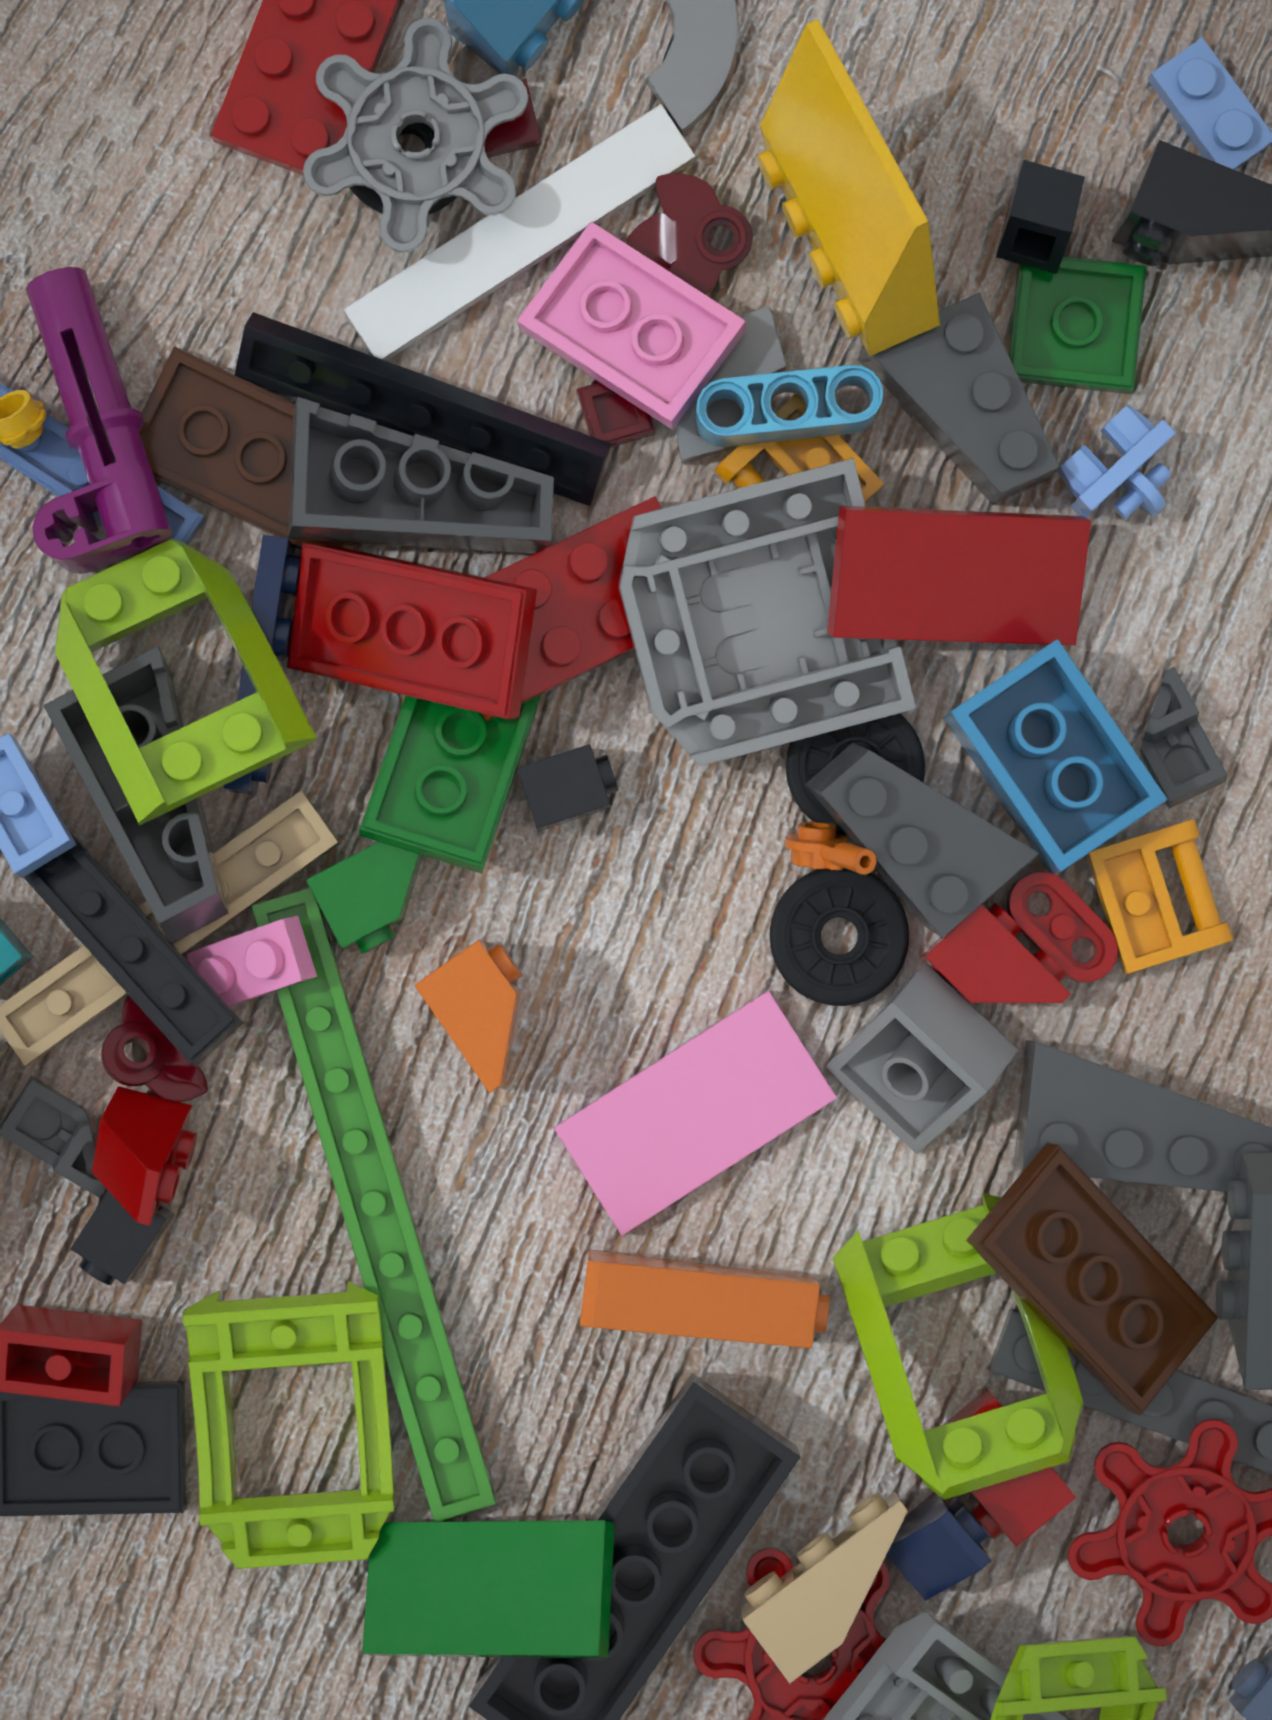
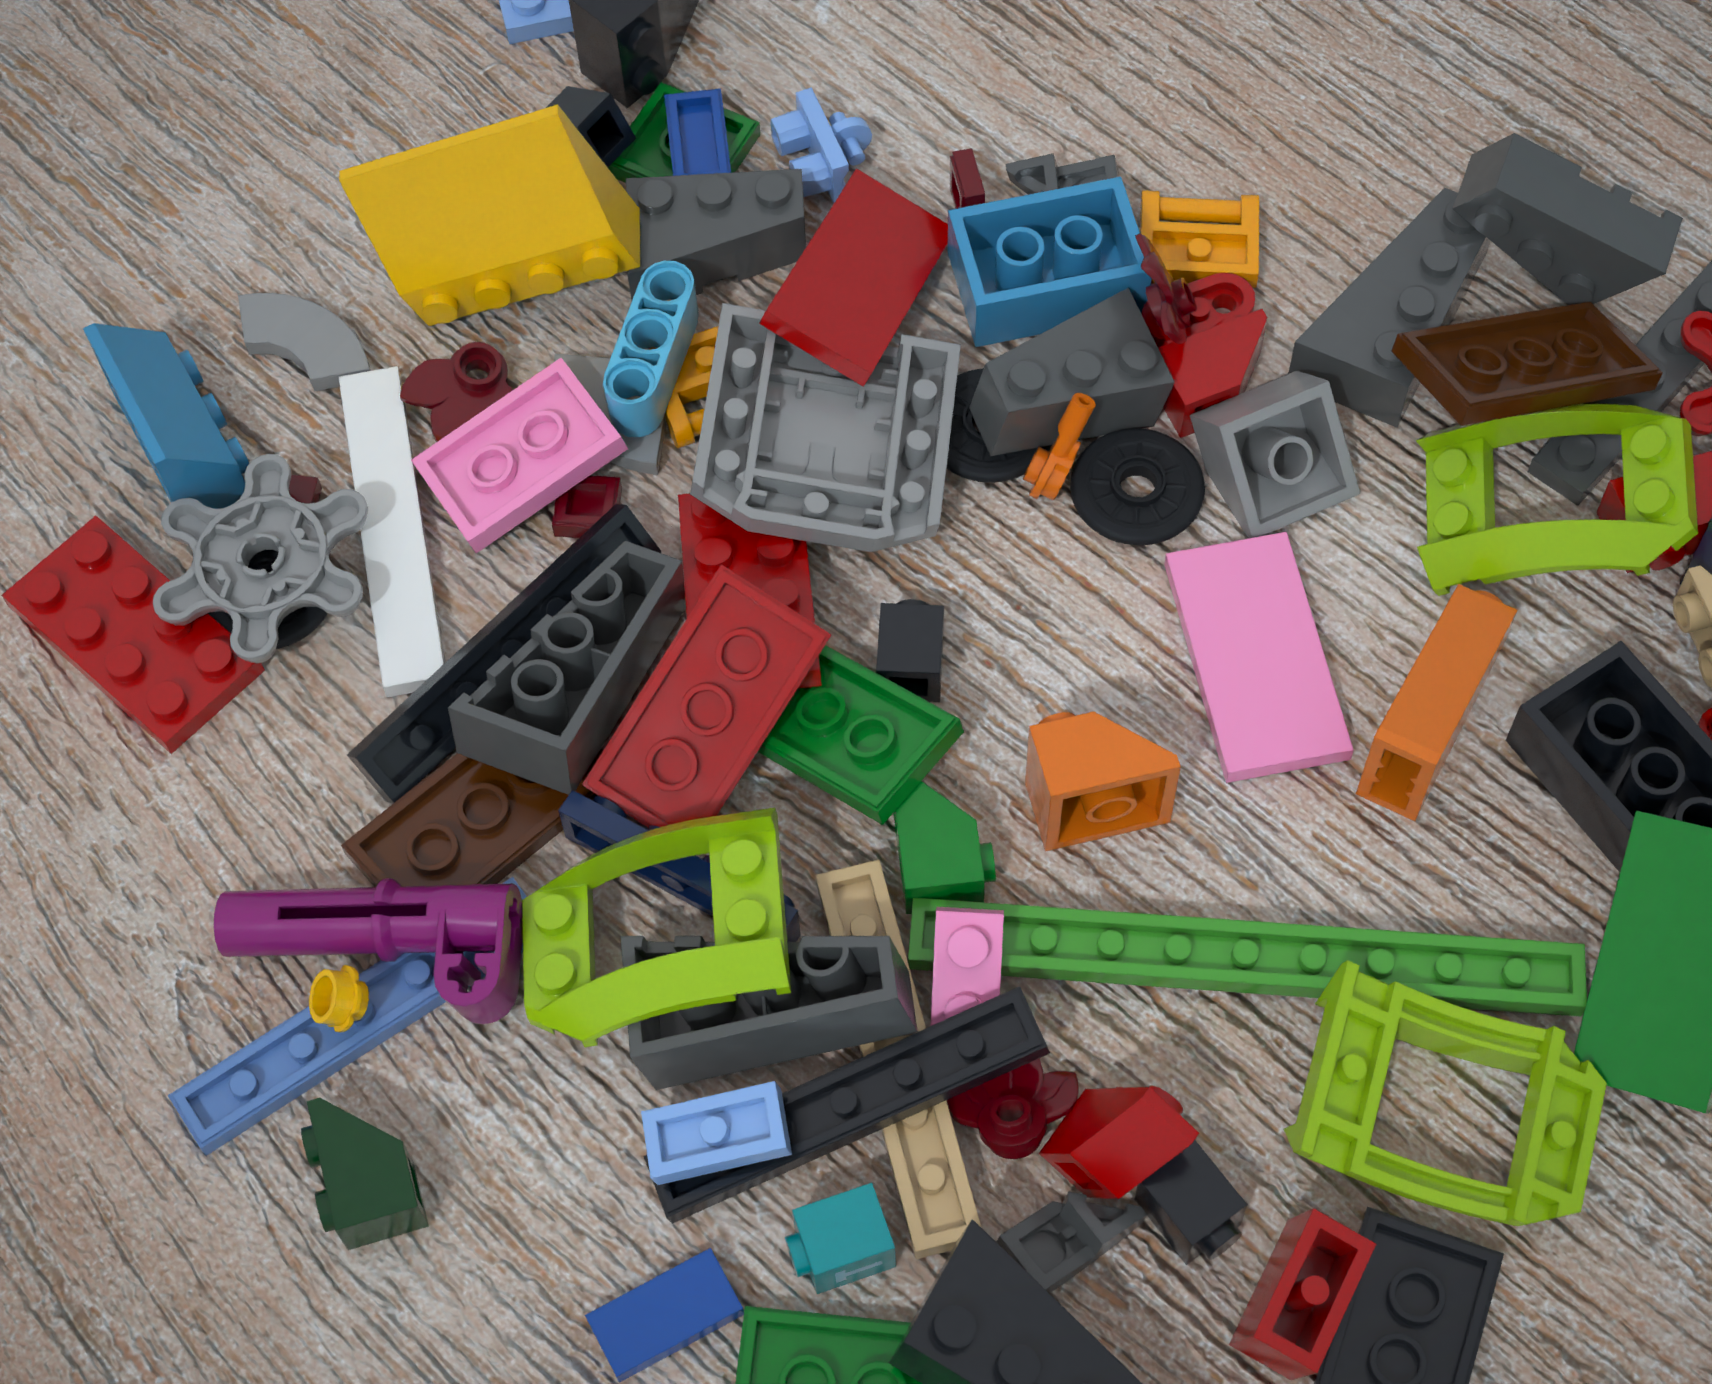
camera: 65 degrees left, 25 degrees down
(1038, 896) = (1168, 298): none -> dark red plate
(1074, 340) = (697, 132): none -> blue tile
(1122, 639) = (965, 179): none -> dark red tile

